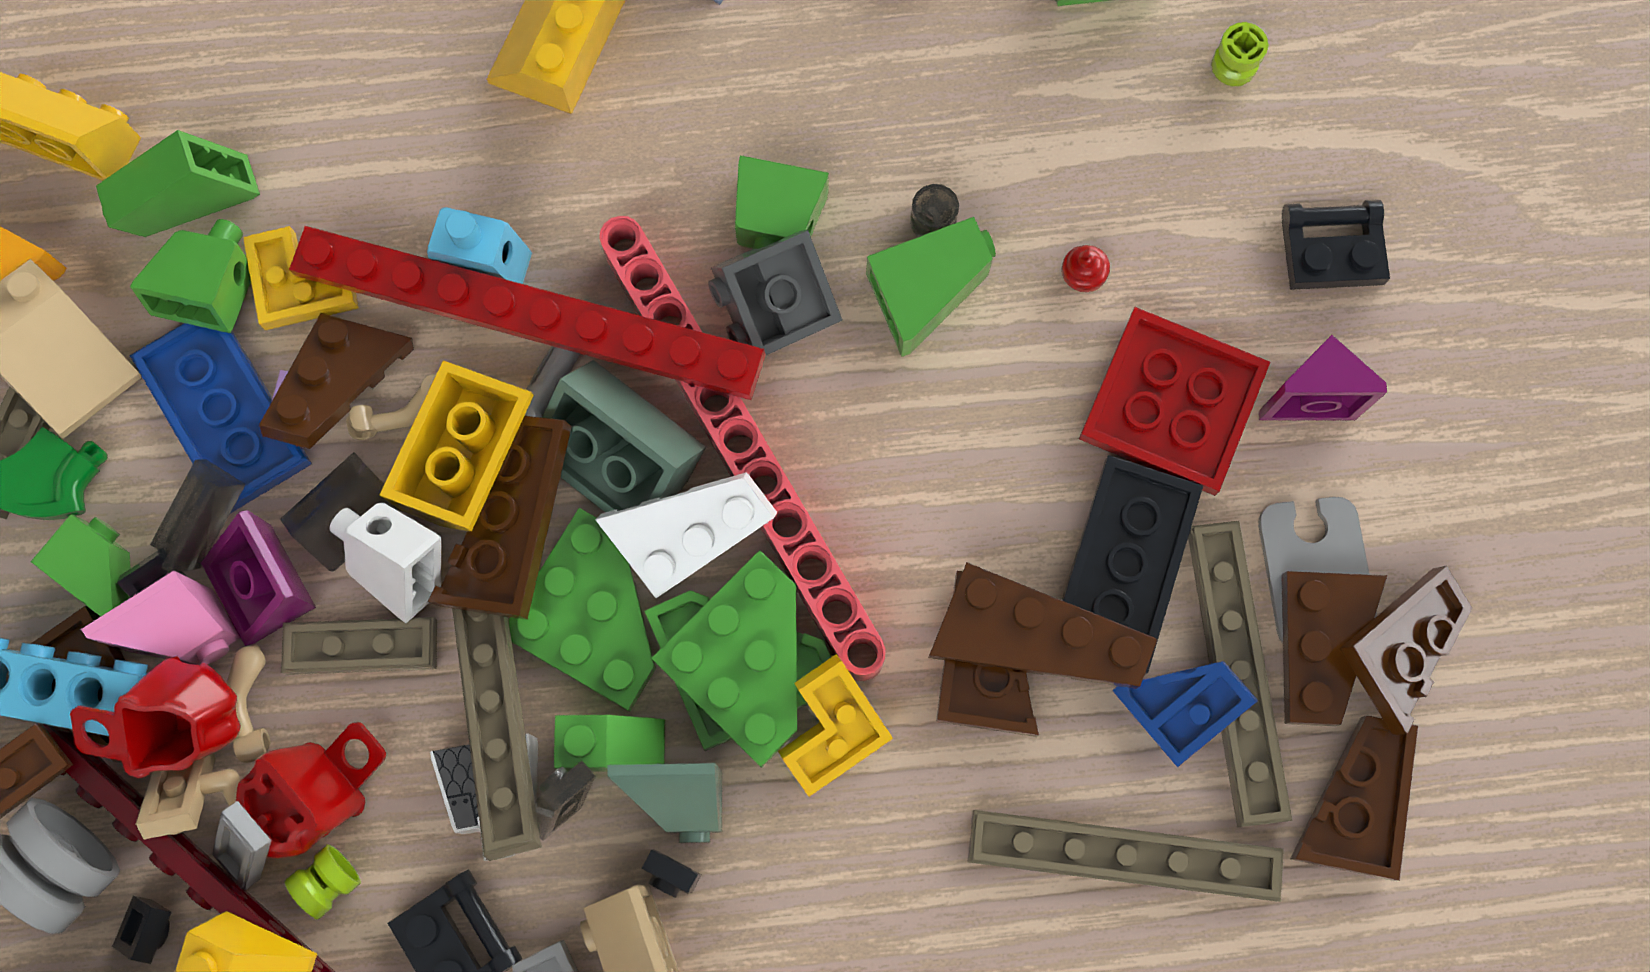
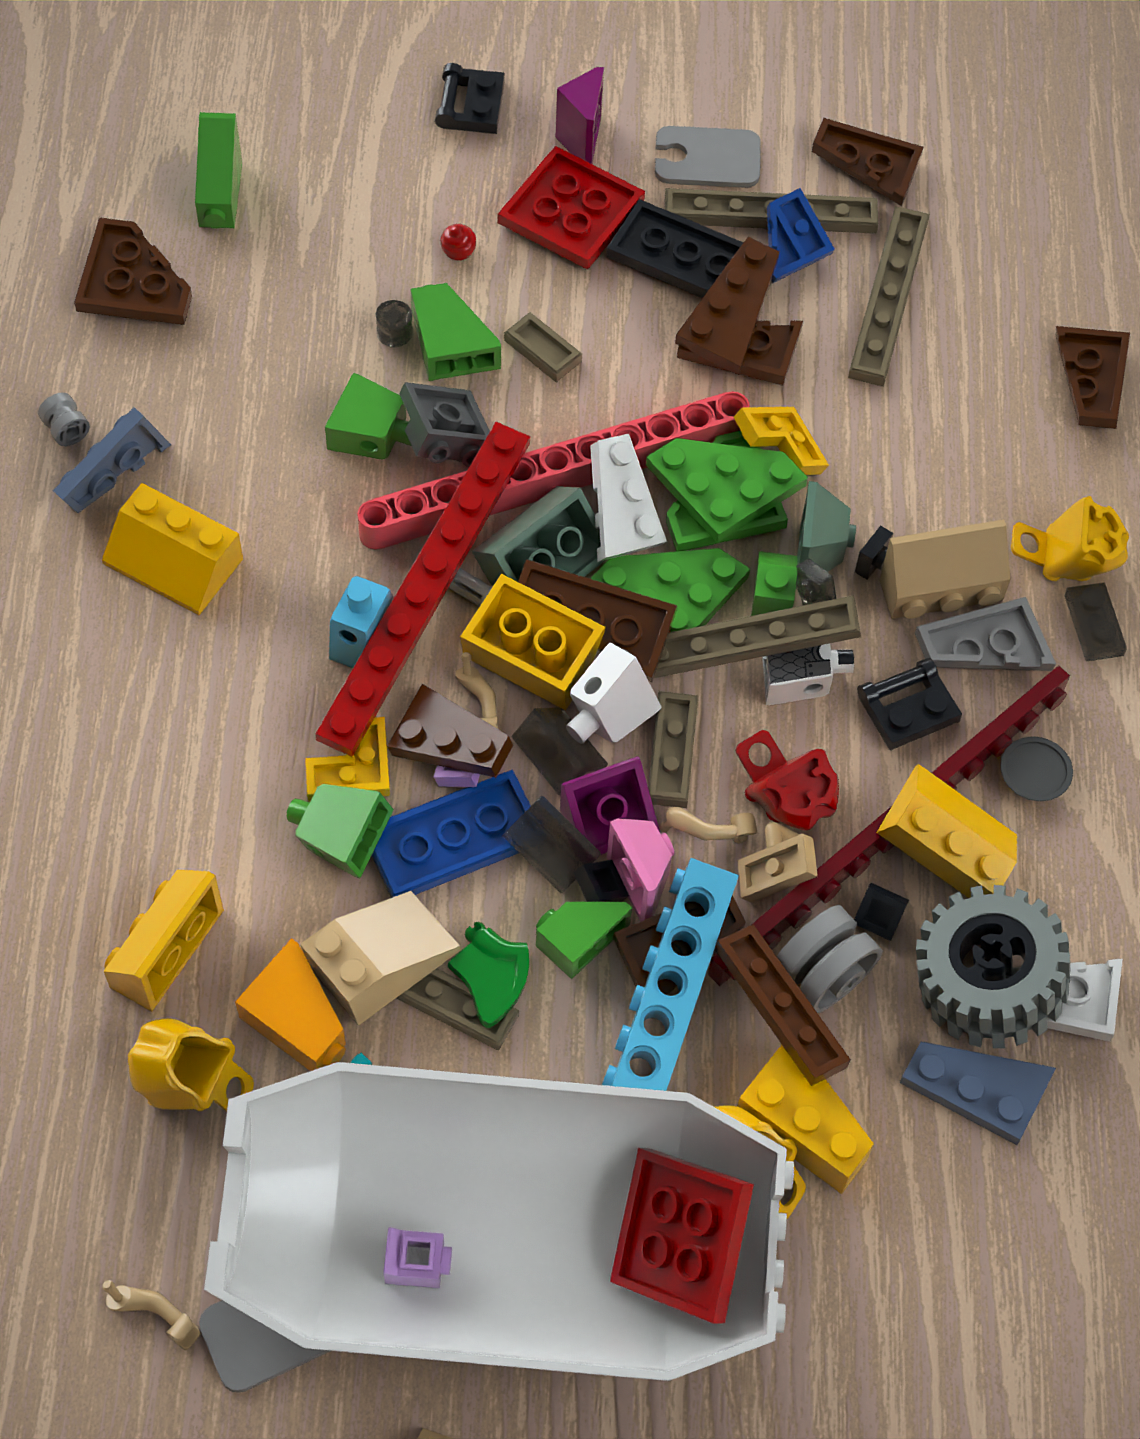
camera: 85 degrees left, 15 degrees down
(164, 719) = (729, 844): red piece -> none
(175, 185) = (249, 846): bright green slope -> none
(241, 846) = (826, 819): light grey tile -> none
(322, 881) = (858, 782): lime wheel -> none
(940, 401) = (543, 347): none -> dark tan tile
(1239, 54) = (311, 120): lime wheel -> none
(1317, 620) = (759, 158): reddish brown wing -> none
(1404, 643) = (768, 113): wing -> none

